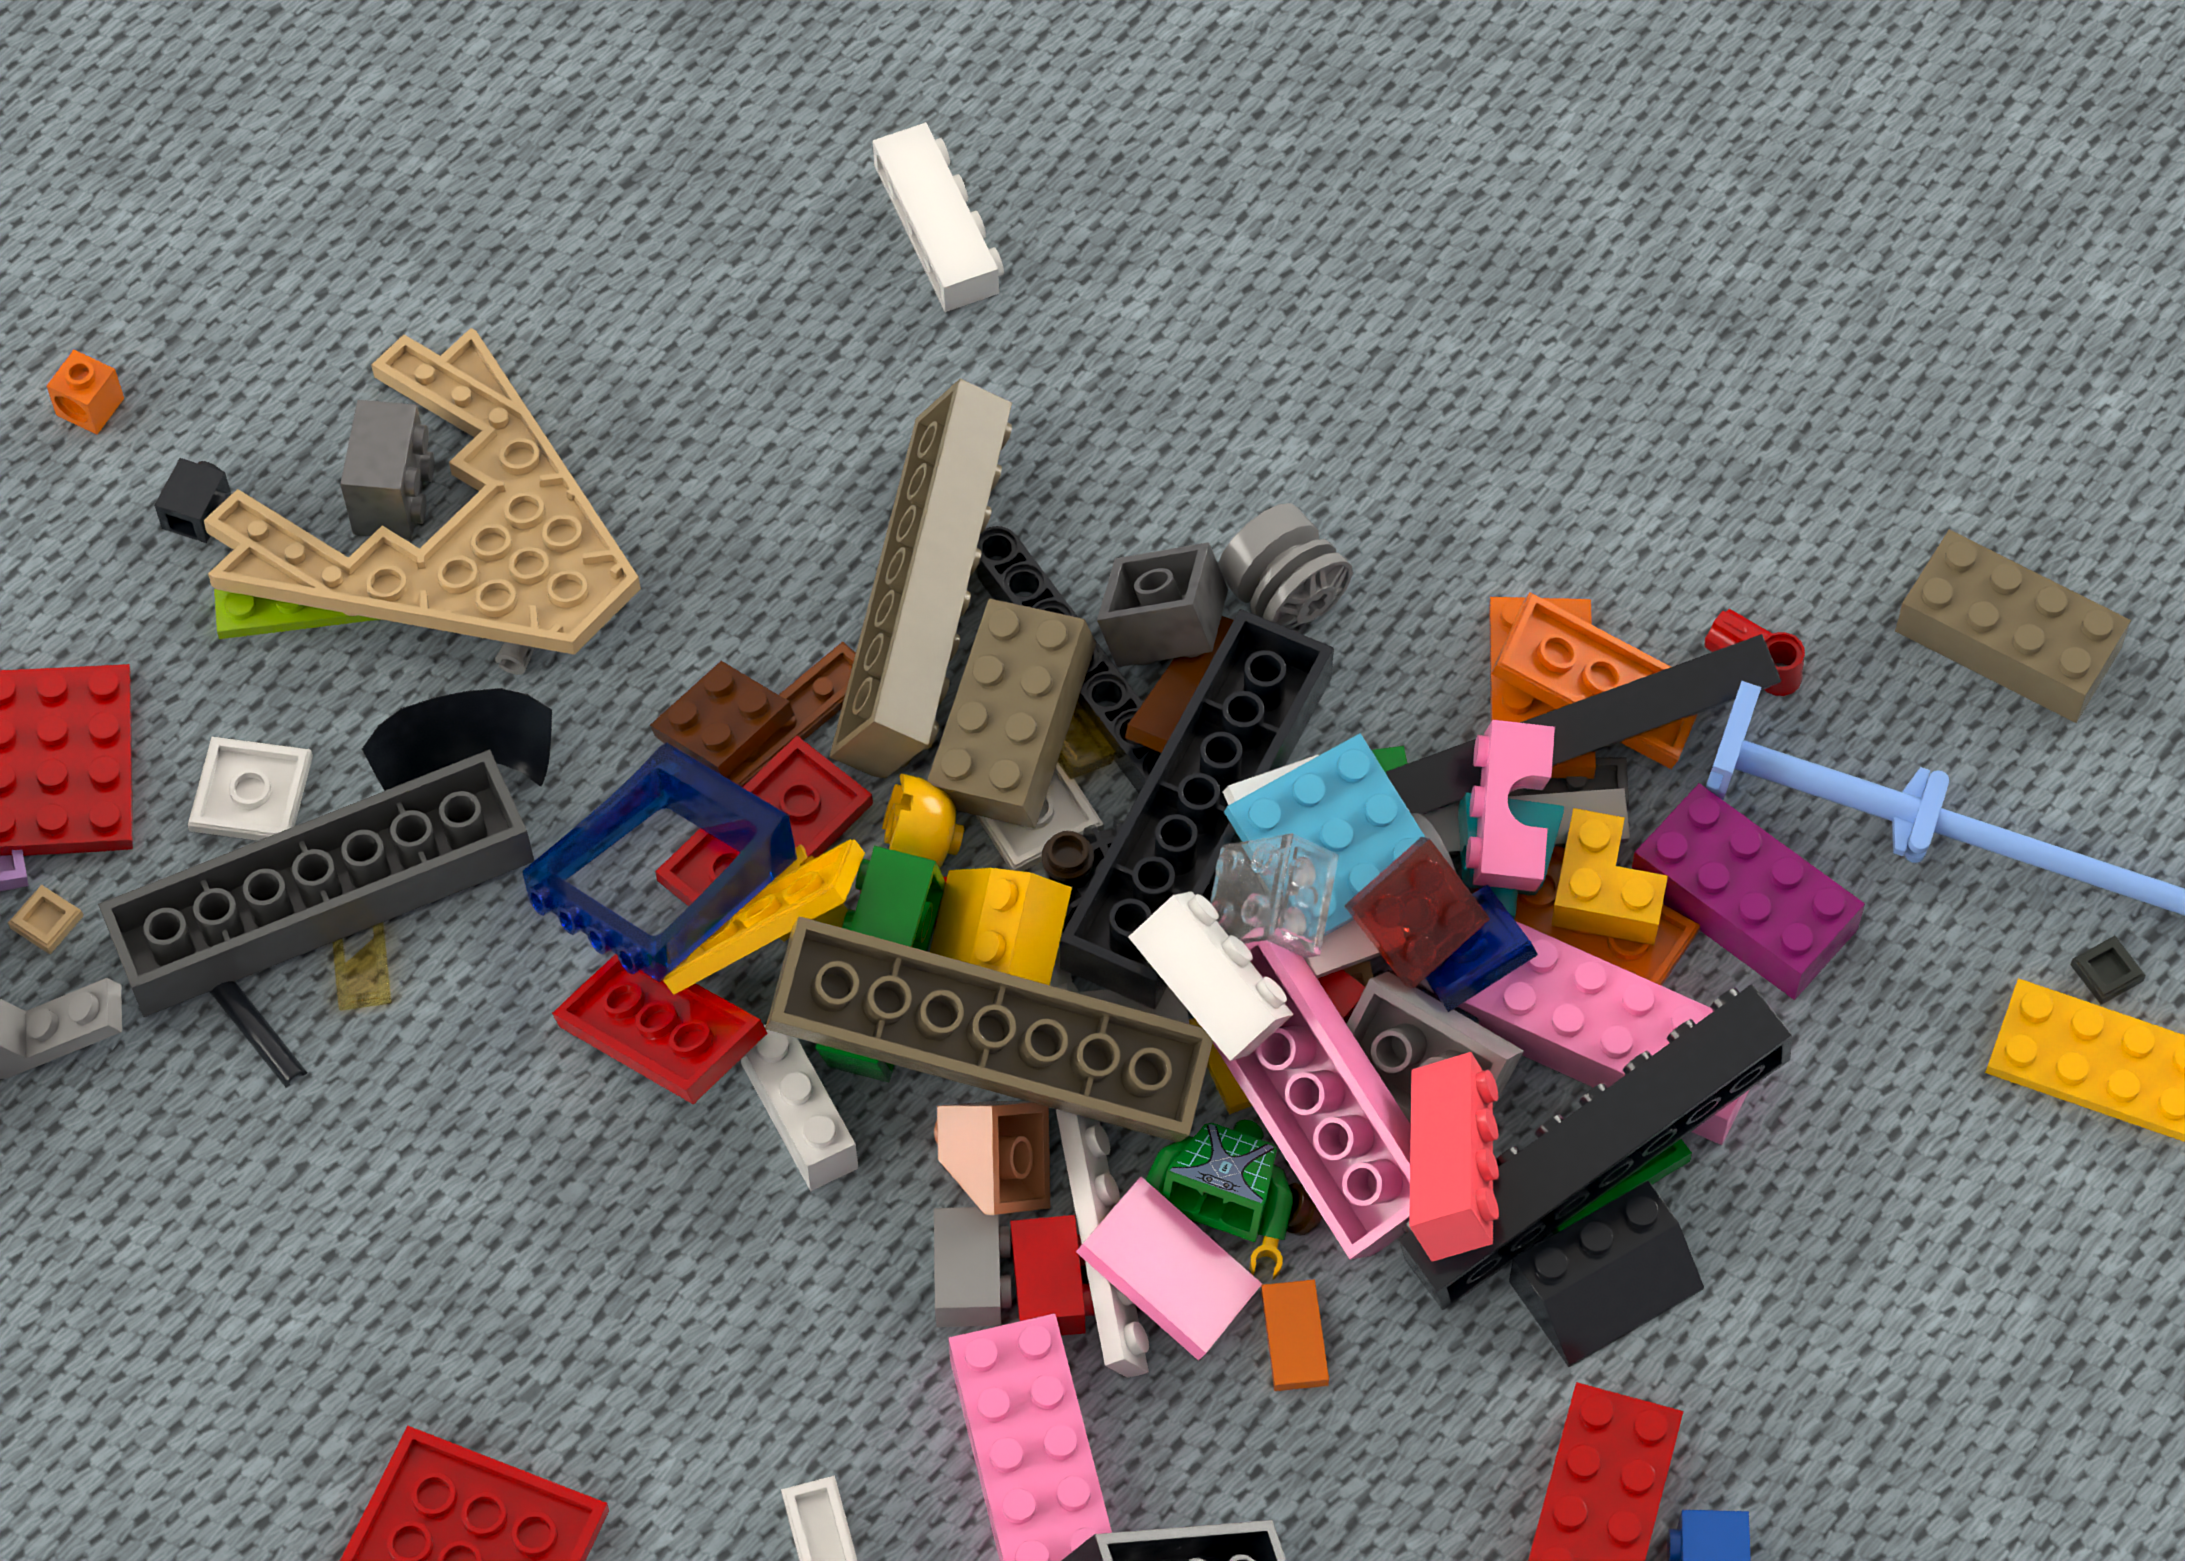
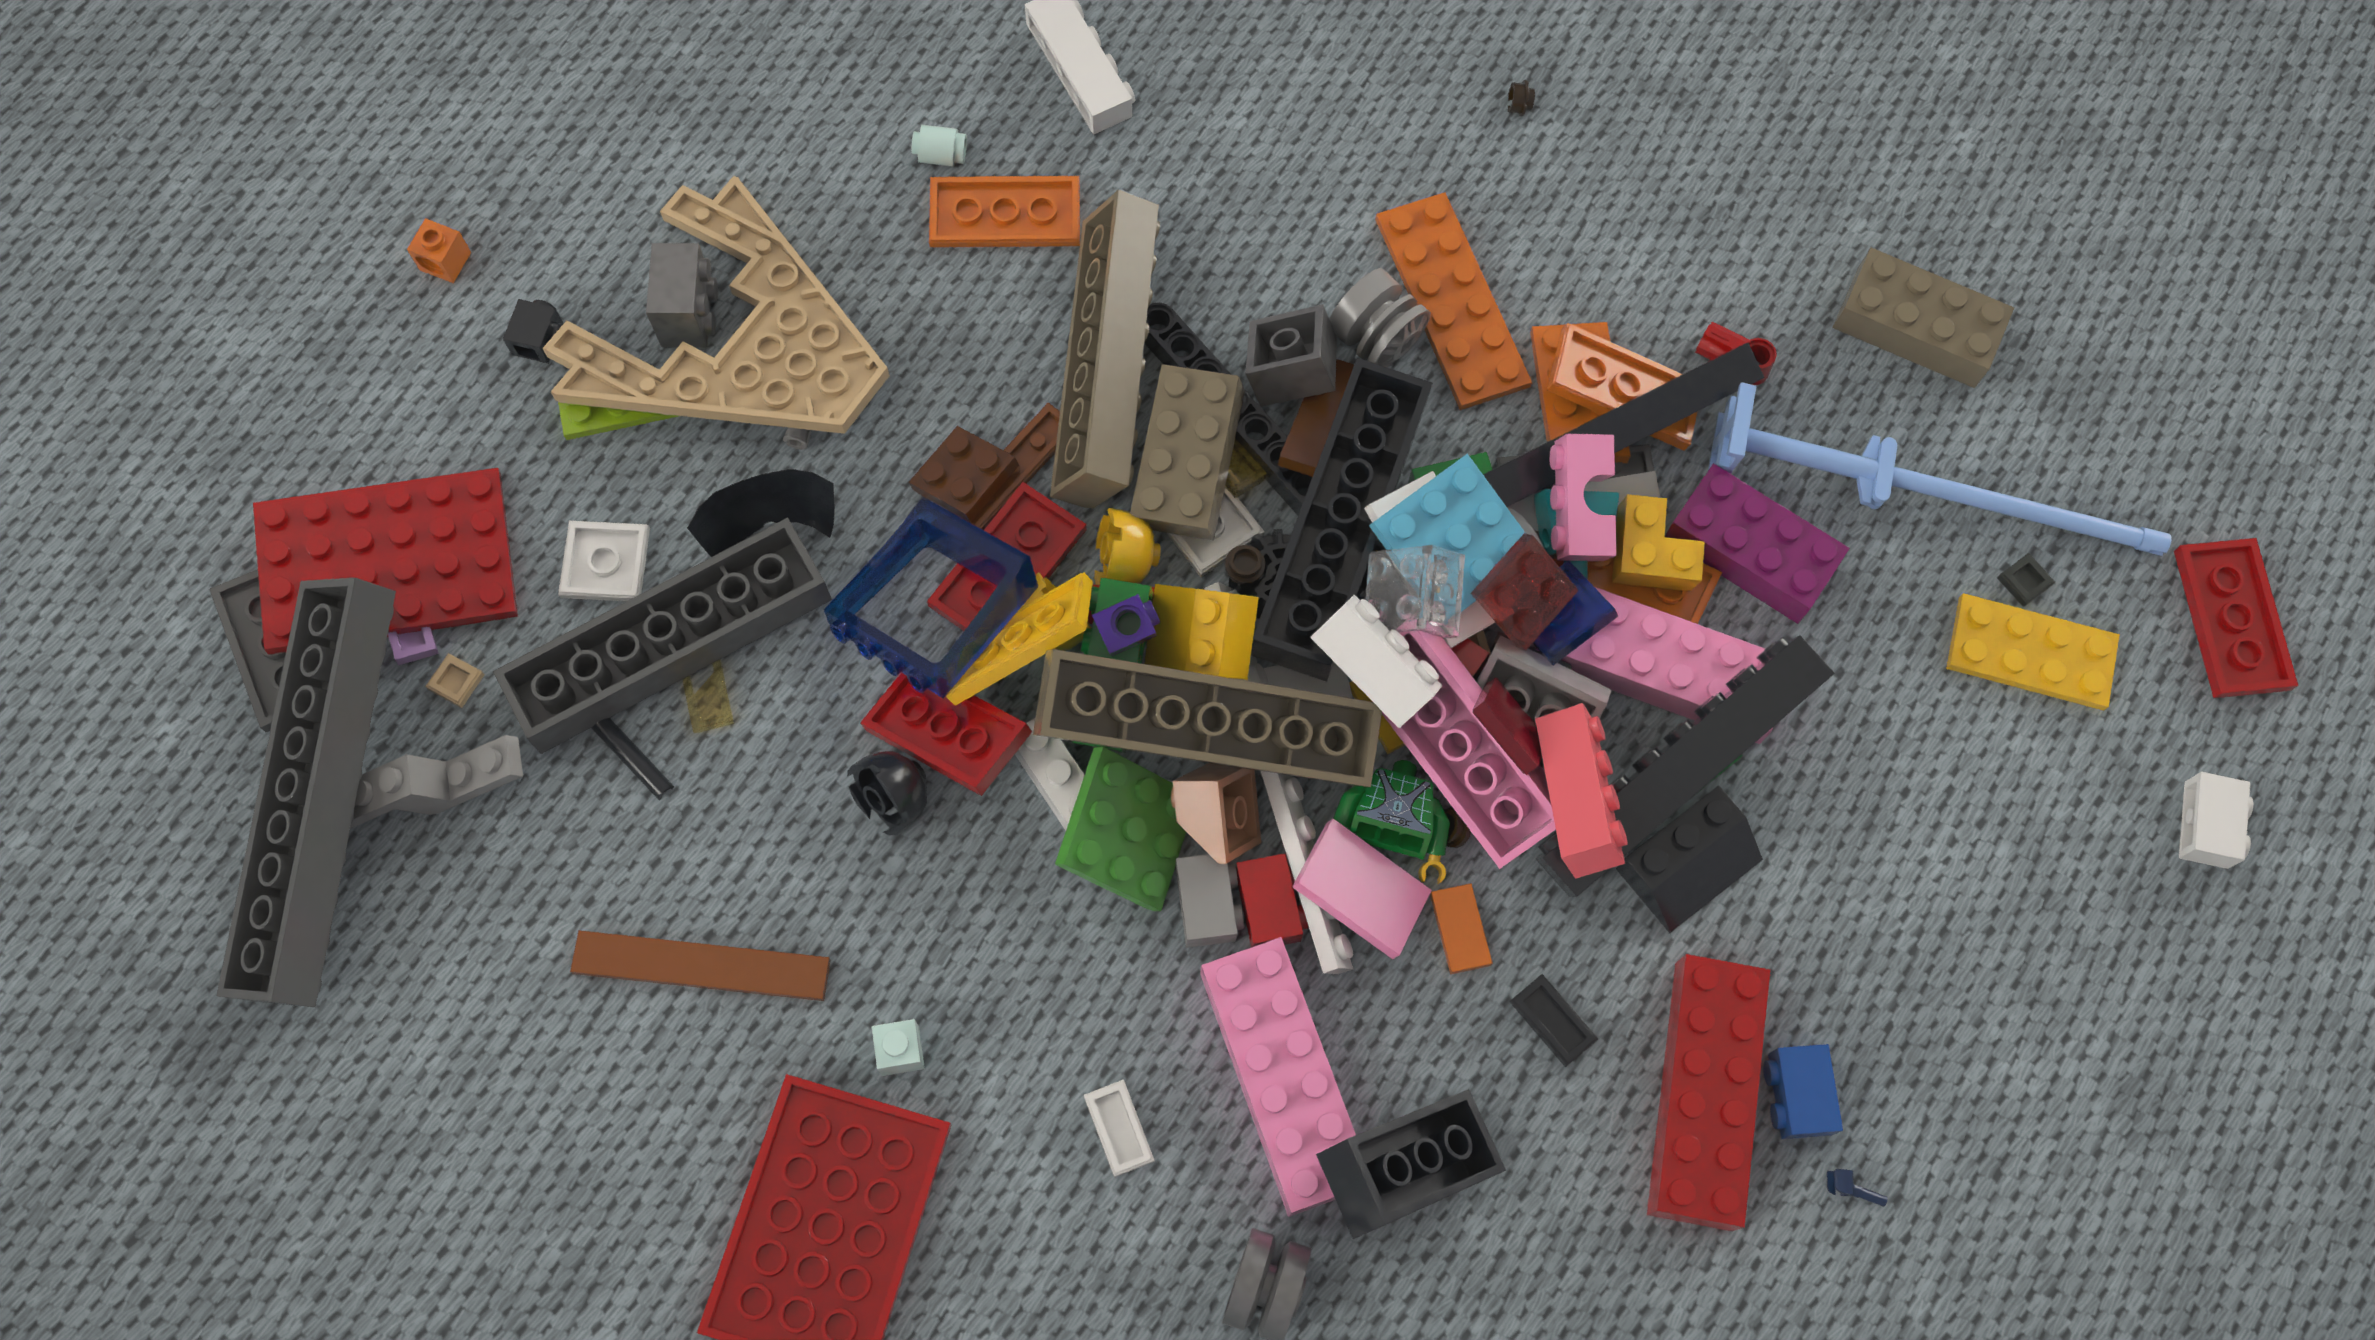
camera: 10 degrees left, 10 degrees up
(316, 1290) = (700, 965): none -> dark orange tile
(552, 1406) = (898, 1047): none -> light aqua brick
(579, 1084) = (887, 782): none -> black cylinder
(741, 310) = (939, 145): none -> light aqua brick
(816, 399) = (1004, 211): none -> orange tile
(870, 1168) = (1123, 830): none -> bright green plate
(877, 891) = (1107, 624): none -> dark purple brick
(1373, 1072) = (1509, 725): none -> dark red tile
(1396, 559) = (1464, 319): none -> orange plate
(1400, 1458) = (1553, 1020): none -> black tile
(1515, 307) = (1522, 97): none -> dark brown plate

